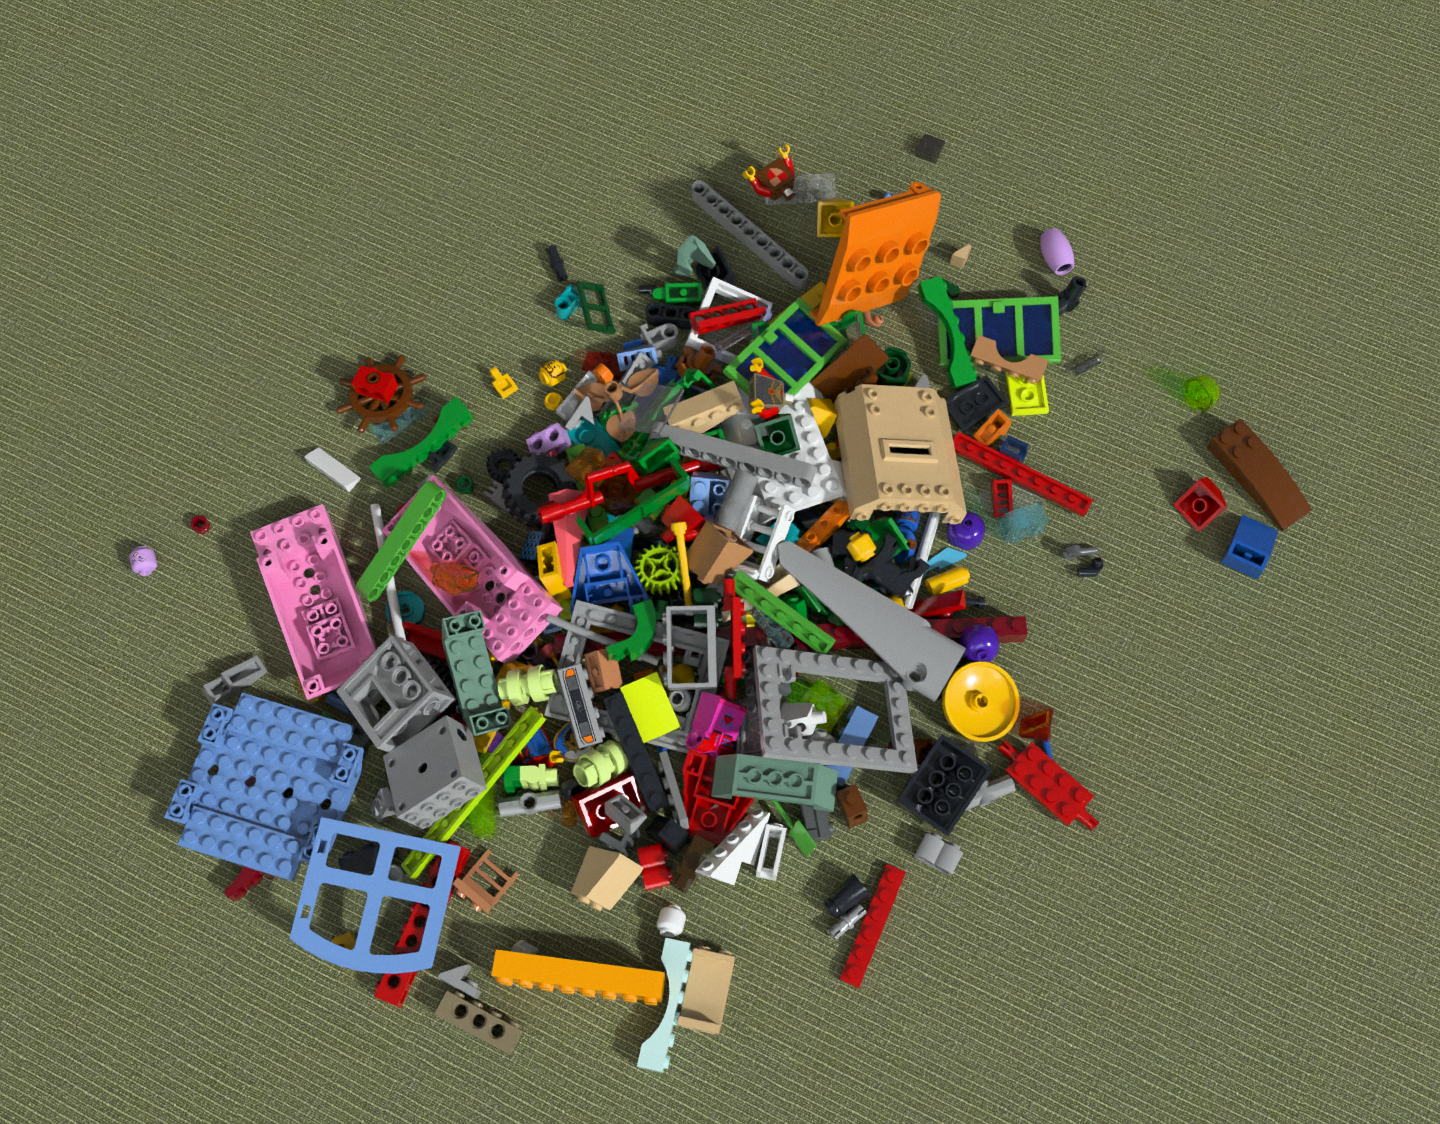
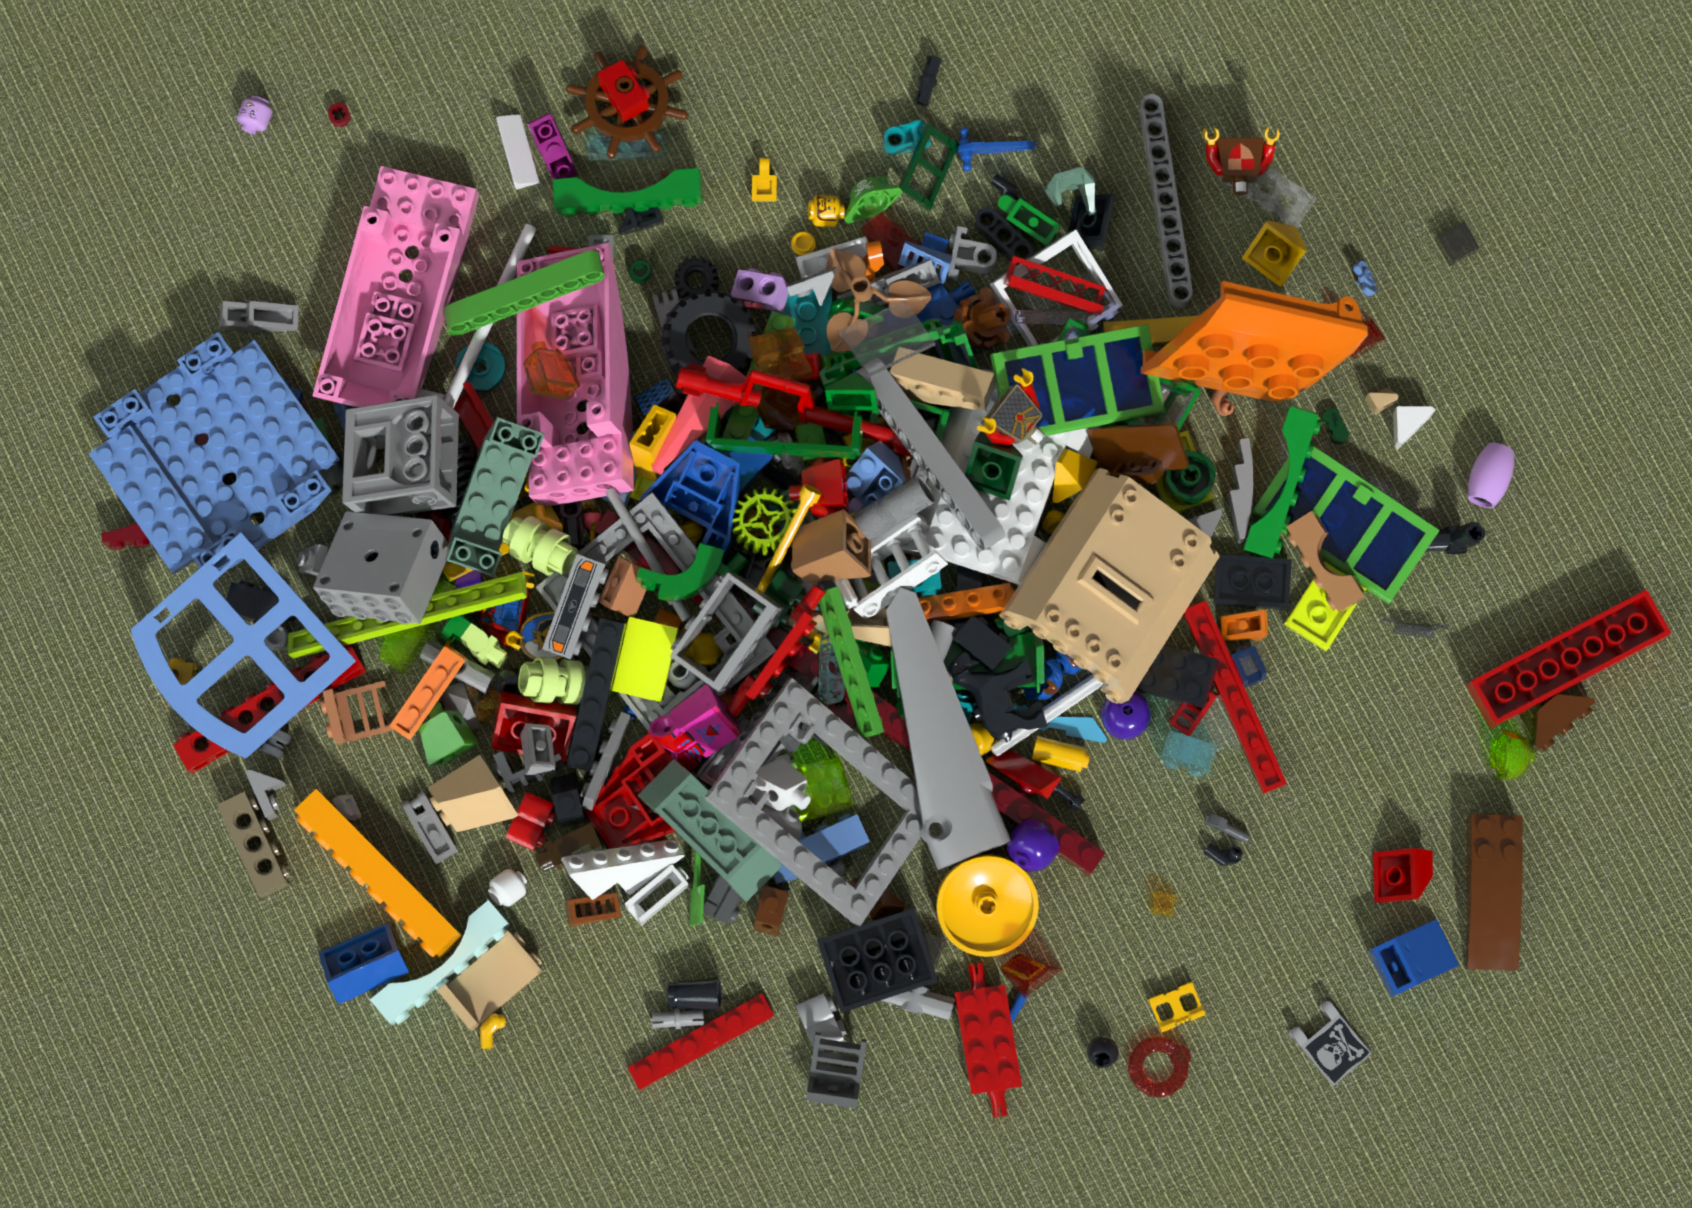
camera: 35 degrees right, 10 degrees up
(352, 449) = (551, 147): none -> magenta slope
(445, 944) = (275, 744): none -> dark grey wheel
(523, 831) = (428, 691): none -> orange panel
(551, 830) = (457, 699): none -> light grey slope
(555, 853) = (445, 736): none -> bright green torso
(575, 347) = (870, 198): none -> bright green hat
(590, 921) = (430, 828): none -> light grey plate
(610, 283) = (968, 148): none -> blue piece
(612, 1045) = (363, 963): none -> blue slope
(724, 905) = (584, 919): none -> dark orange slope
(729, 1024) = (487, 1029): none -> yellow arm
(861, 547) = (985, 655): yellow head -> none
(929, 362) = (1241, 498): none -> light grey slope
(978, 885) = (834, 1083): none -> dark grey plate
(983, 482) = (1180, 676): none -> black plate
(985, 257) = (1408, 420): none -> white slope
(1082, 618) = (1169, 900): none -> clear yellow plate
(1123, 738) = (1102, 1052): none -> black piece
(1134, 674) = (1180, 1015): none -> yellow piece
(1161, 706) = (1180, 1069): none -> clear red piece
(1186, 318) = (1568, 659): none -> red brick
(1208, 354) = (1557, 717): none -> reddish brown slope
(1250, 632) = (1334, 1047): none -> flag

